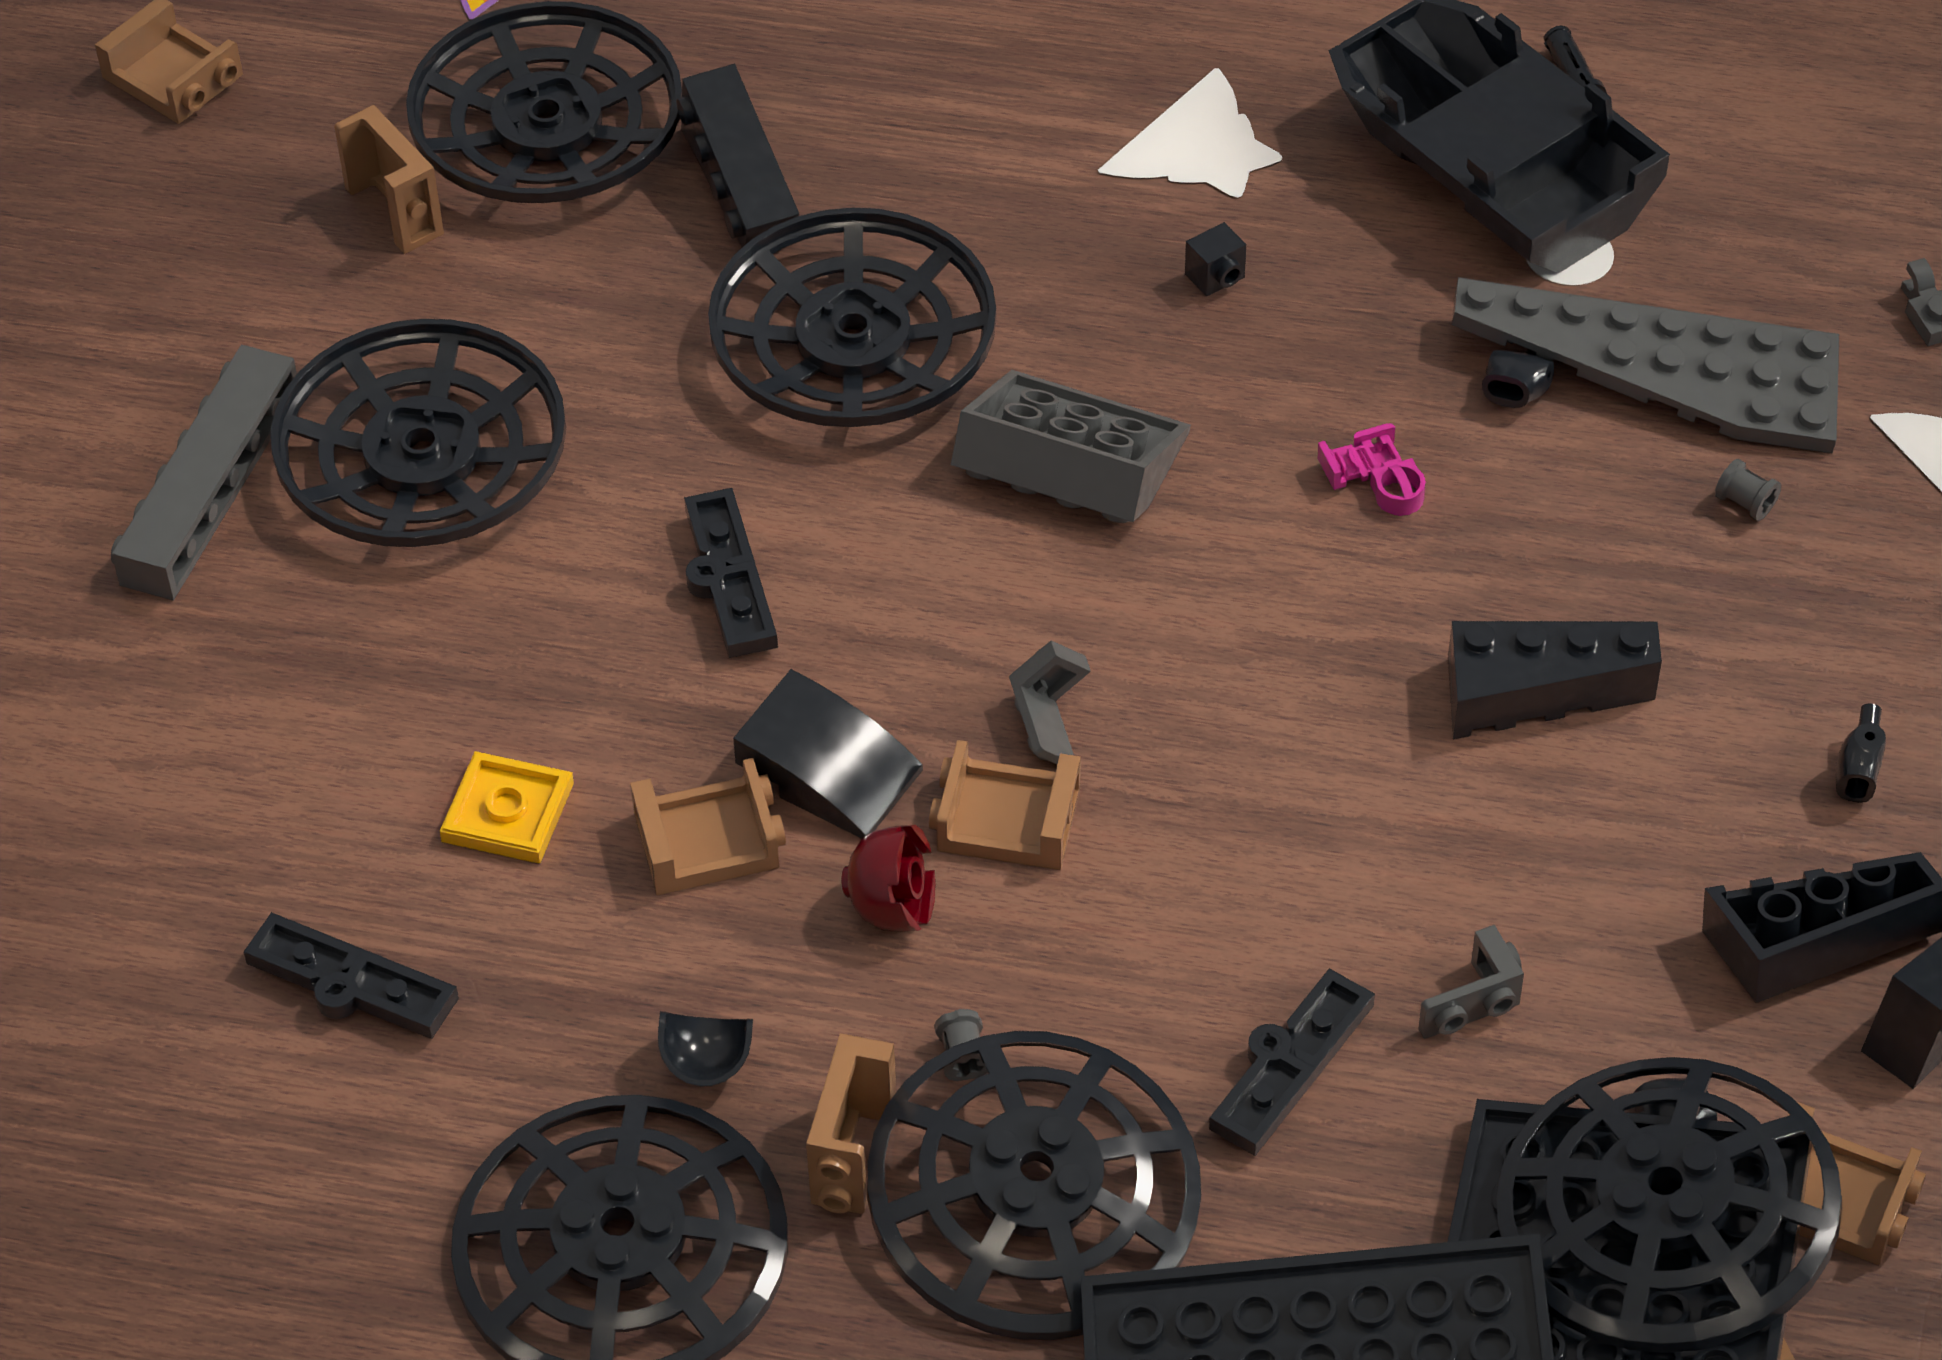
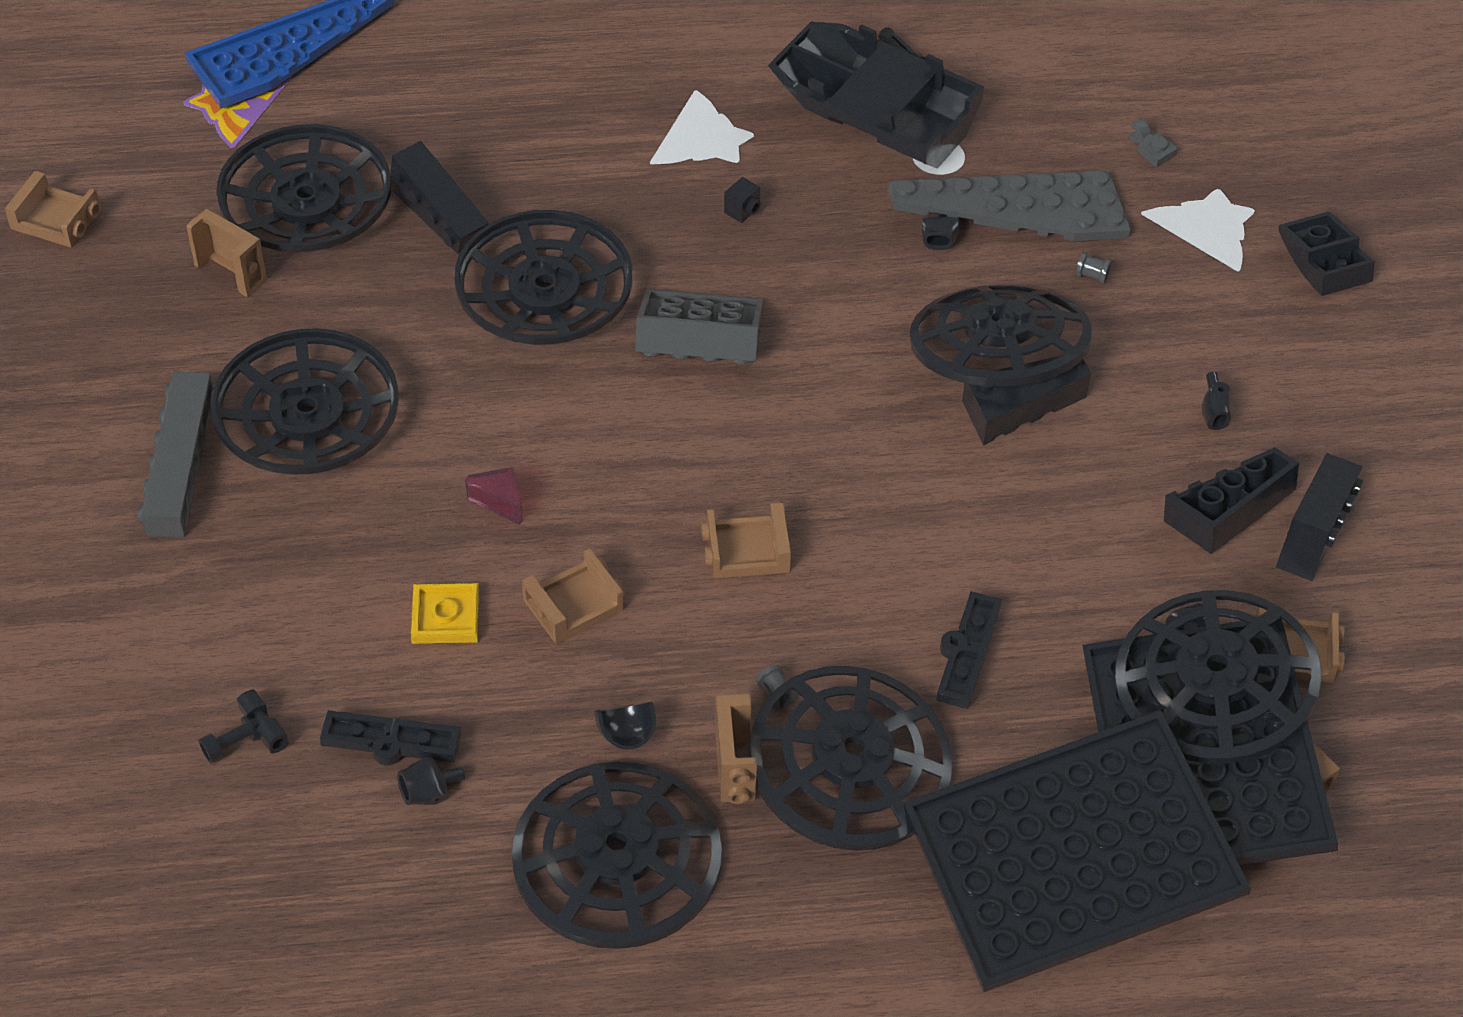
camera: 20 degrees left, 0 degrees up
(162, 909) = (254, 724): none -> black bar
(374, 1058) = (426, 783): none -> black piece
(654, 638) = (496, 492): none -> clear pink slope
(728, 573) = (526, 444): black hinge -> none
(826, 755) = (629, 537): black slope -> none
(890, 879) = (697, 600): dark red cylinder -> none
(1038, 687) = (739, 465): dark grey bracket -> none
(1383, 464) = (880, 296): dark pink piece -> none
(1492, 995) = (1067, 582): dark grey bracket -> none
(1541, 549) = (1001, 324): none -> black dish

